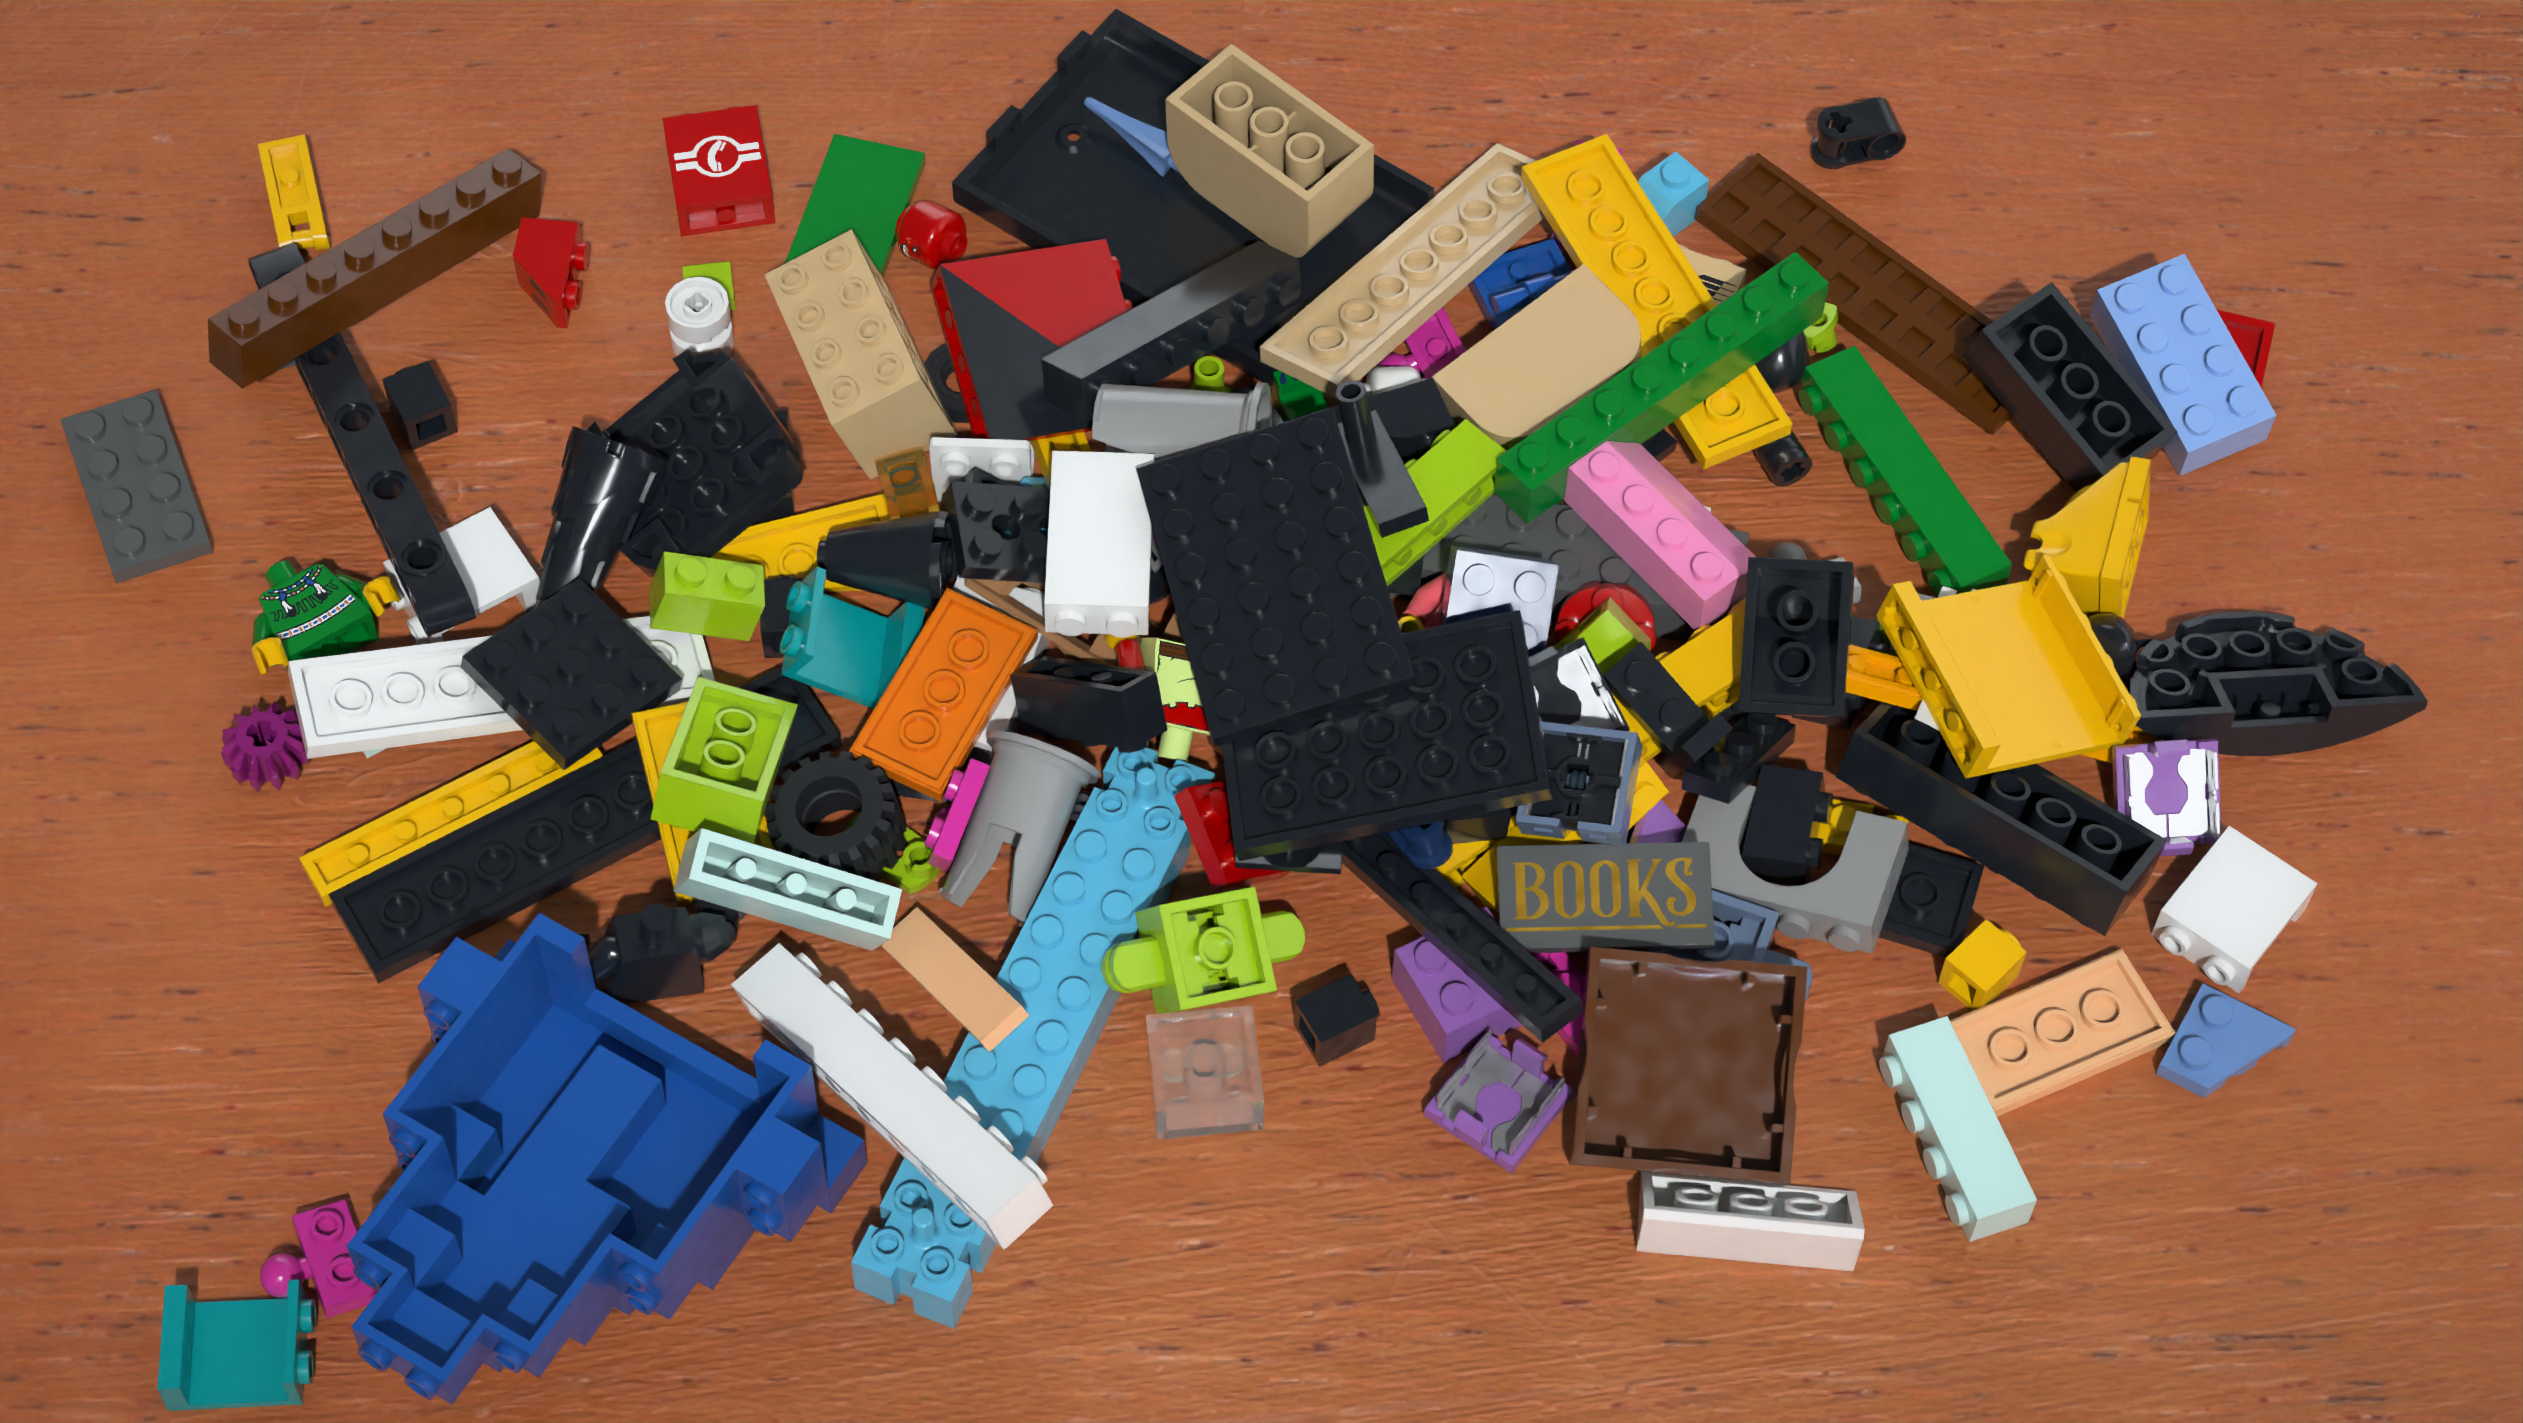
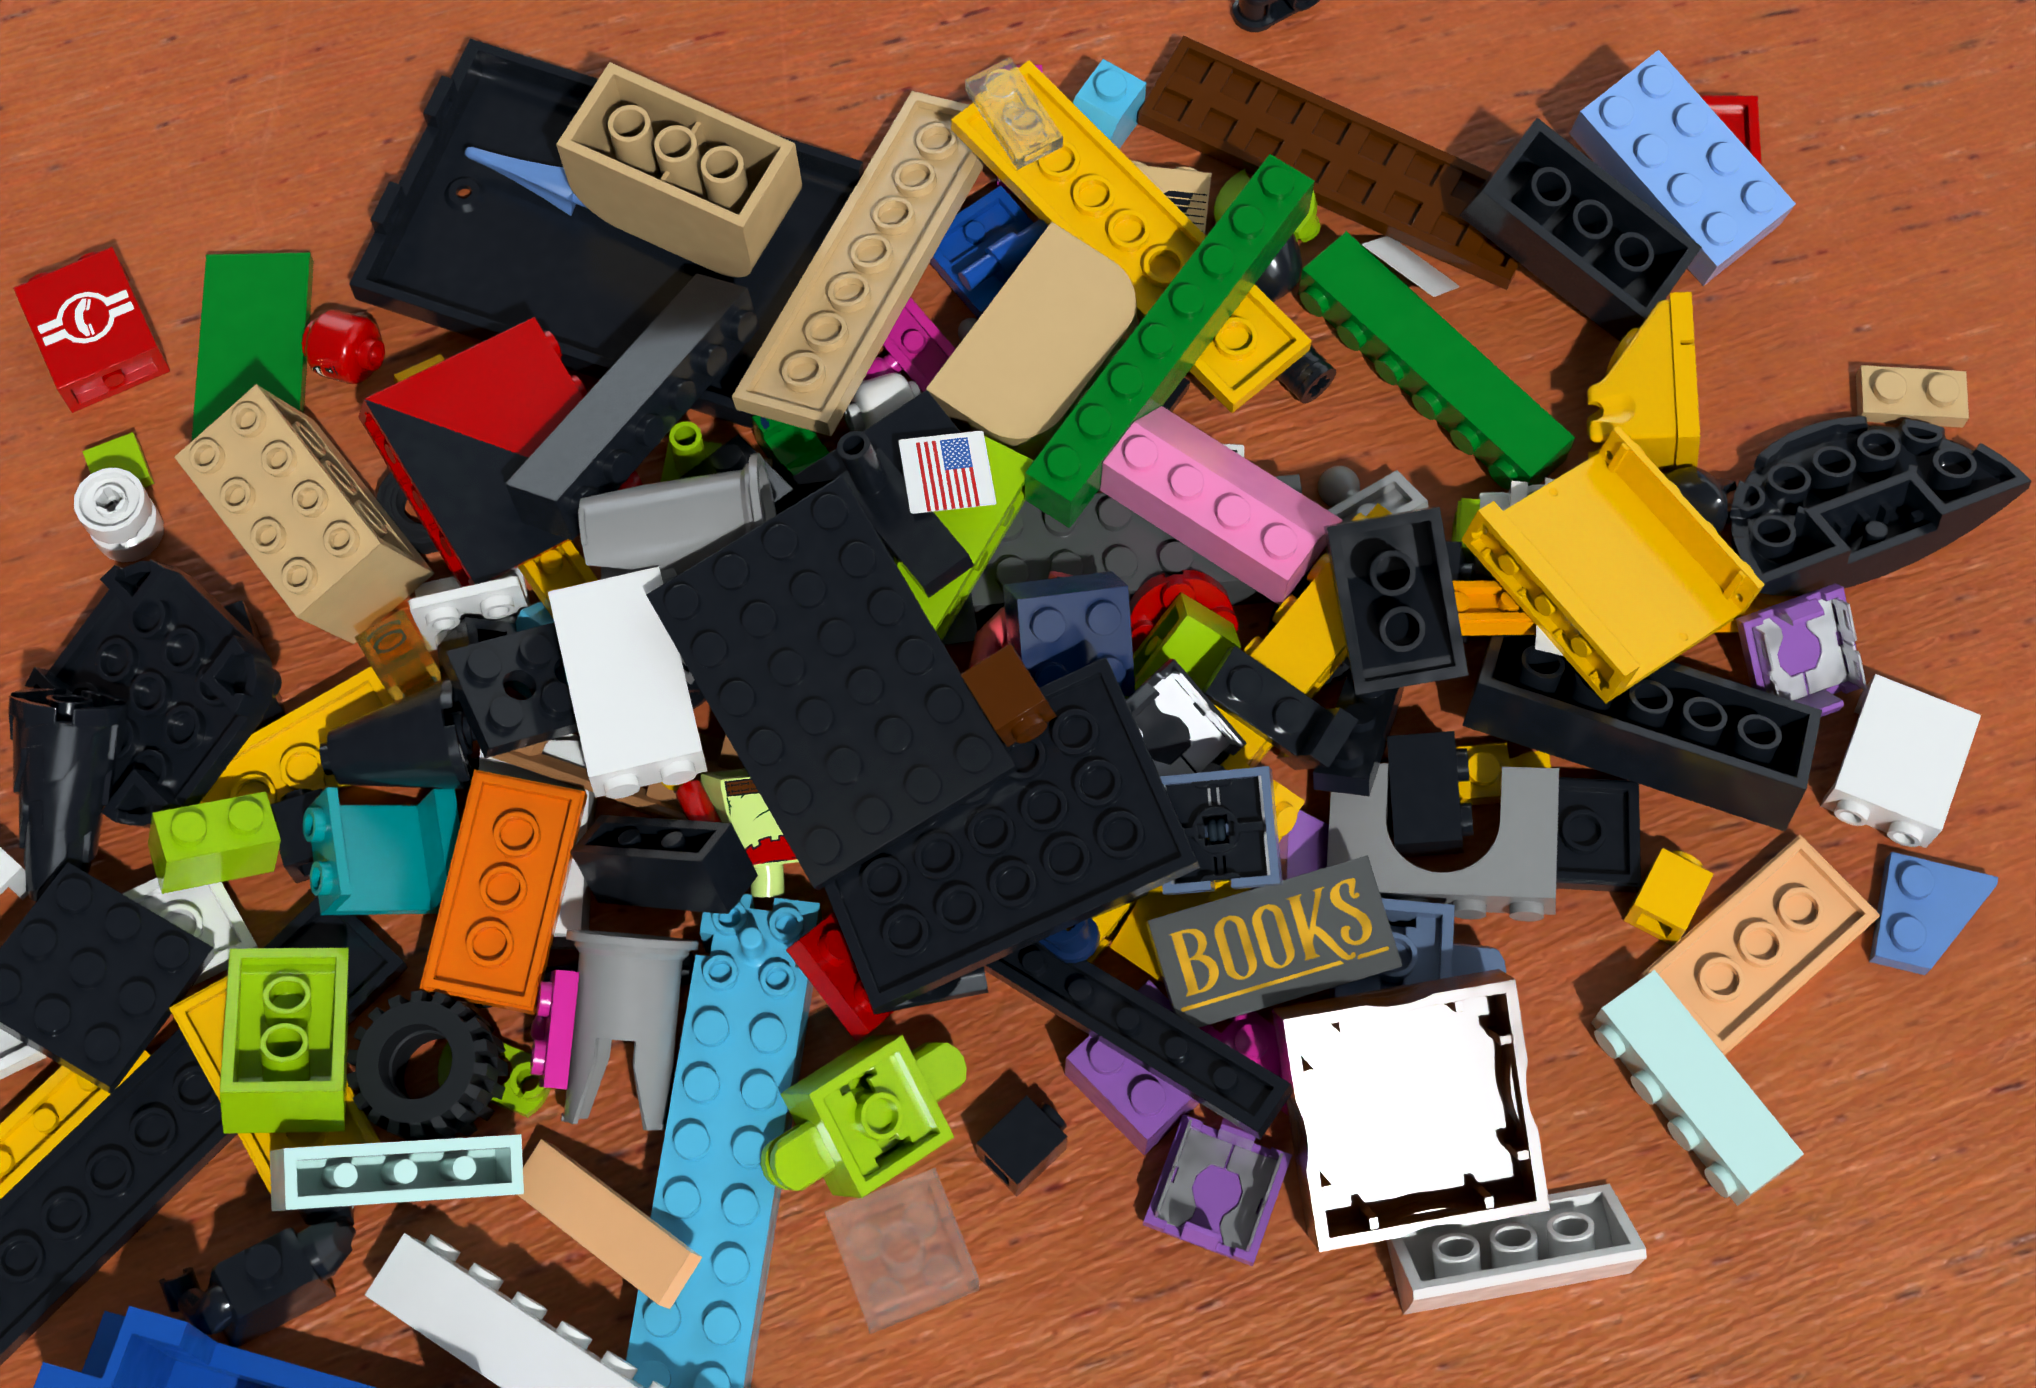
camera: 15 degrees left, 10 degrees up
(1425, 618) = (1009, 696): none -> reddish brown brick
(1428, 441) = (947, 472): none -> sticker
(1579, 173) = (1013, 113): none -> clear plate
(1908, 391) = (1411, 266): none -> white sticker
(2350, 610) = (1912, 394): none -> tan plate

